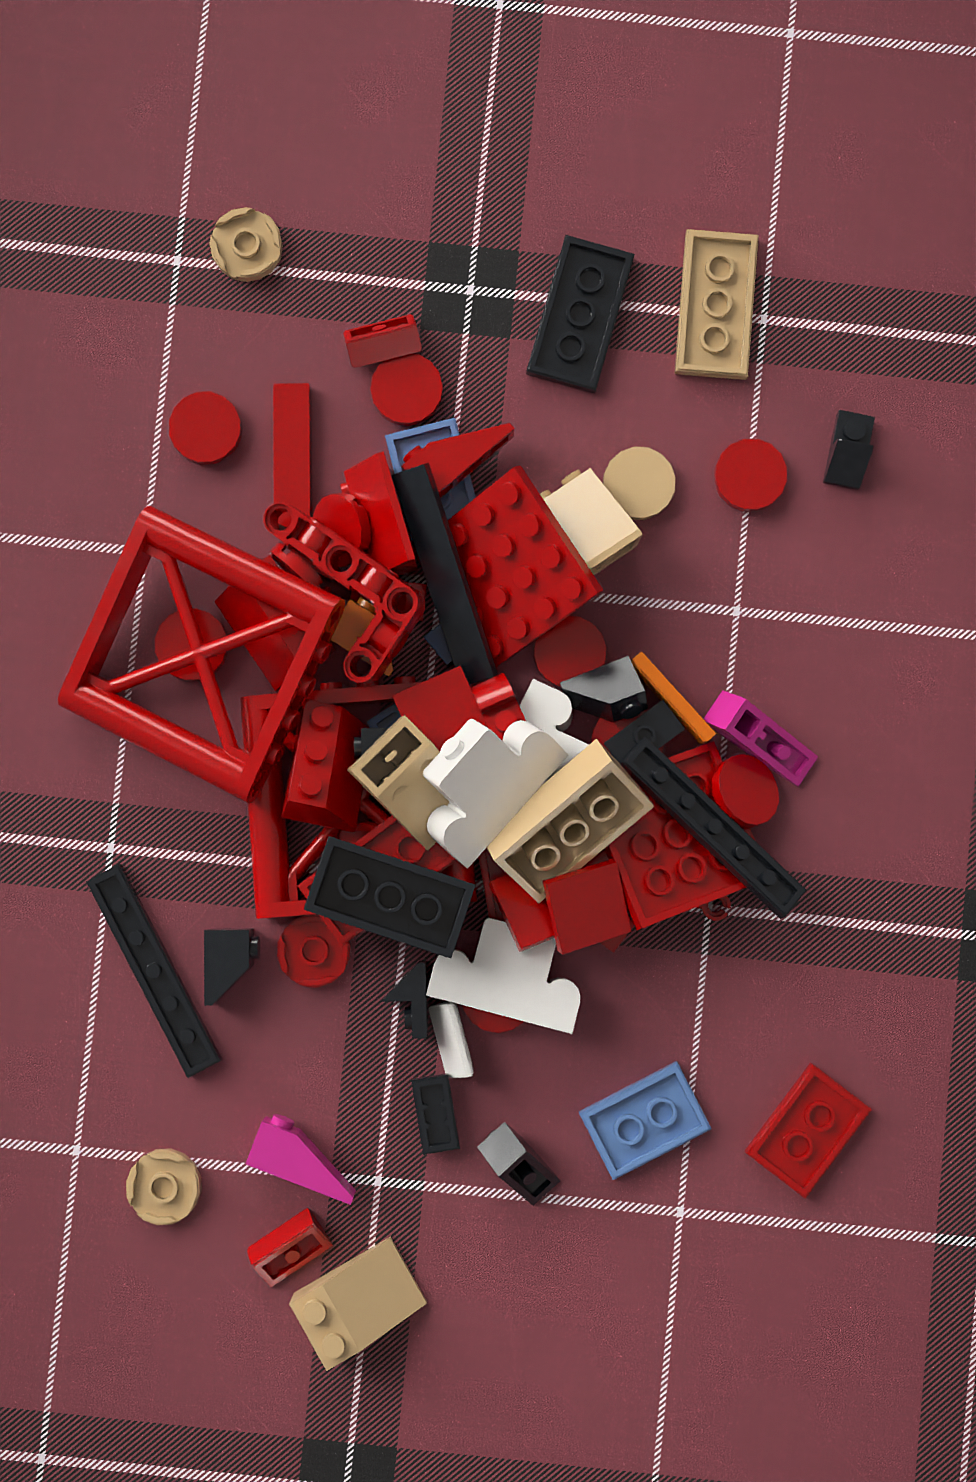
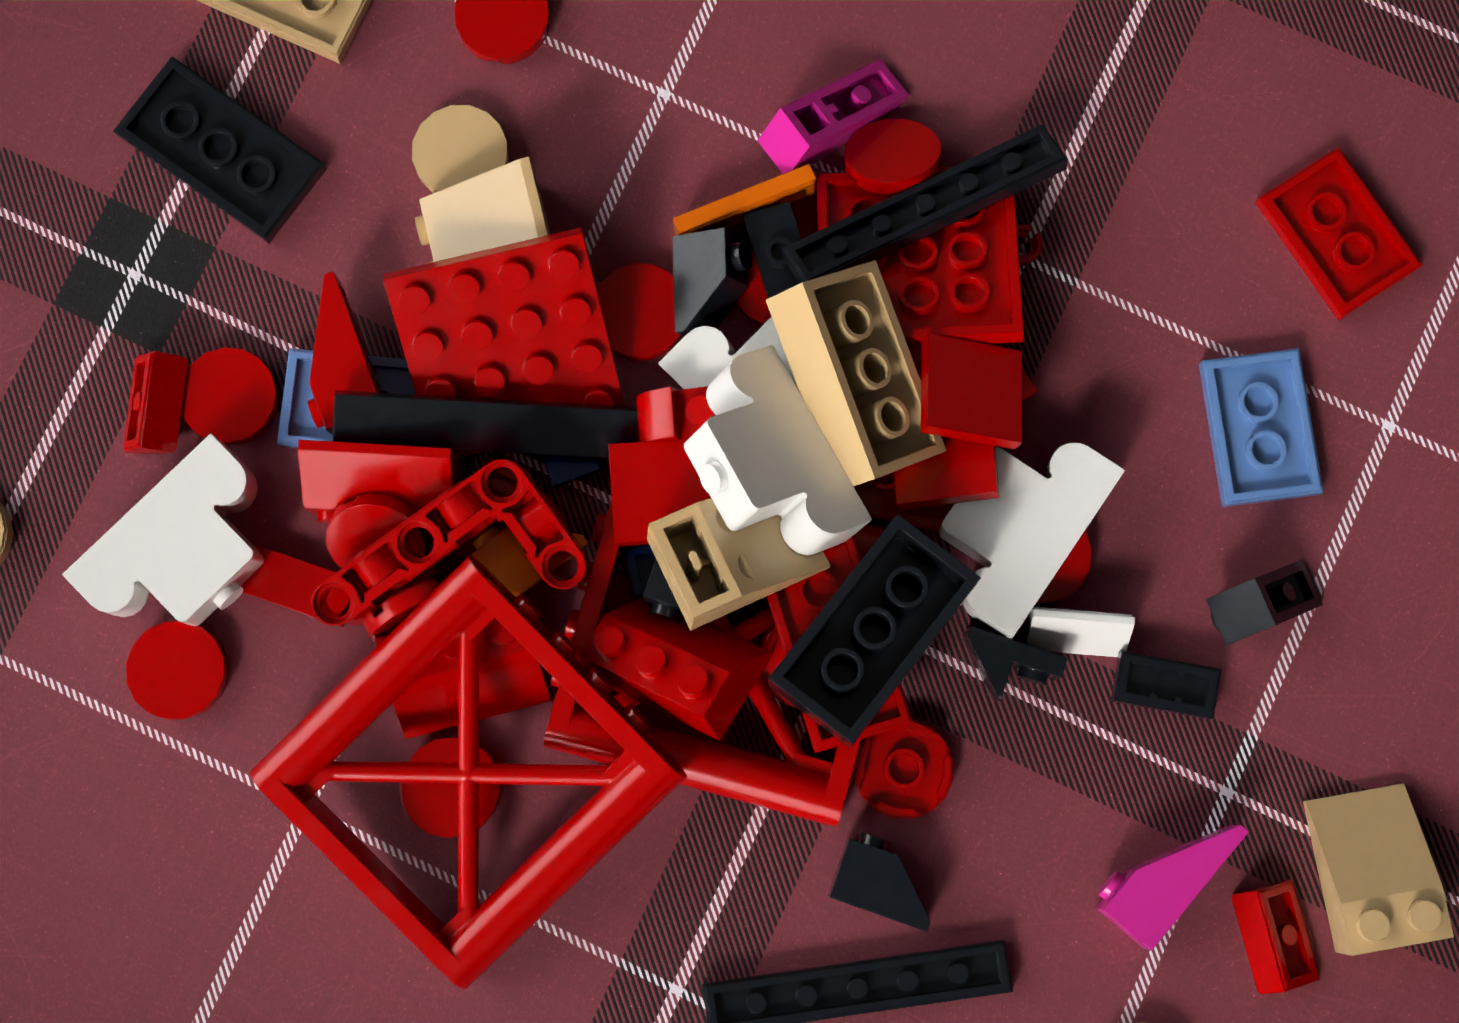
camera: 65 degrees left, 5 degrees down
(288, 394) = (176, 542): none -> white brick

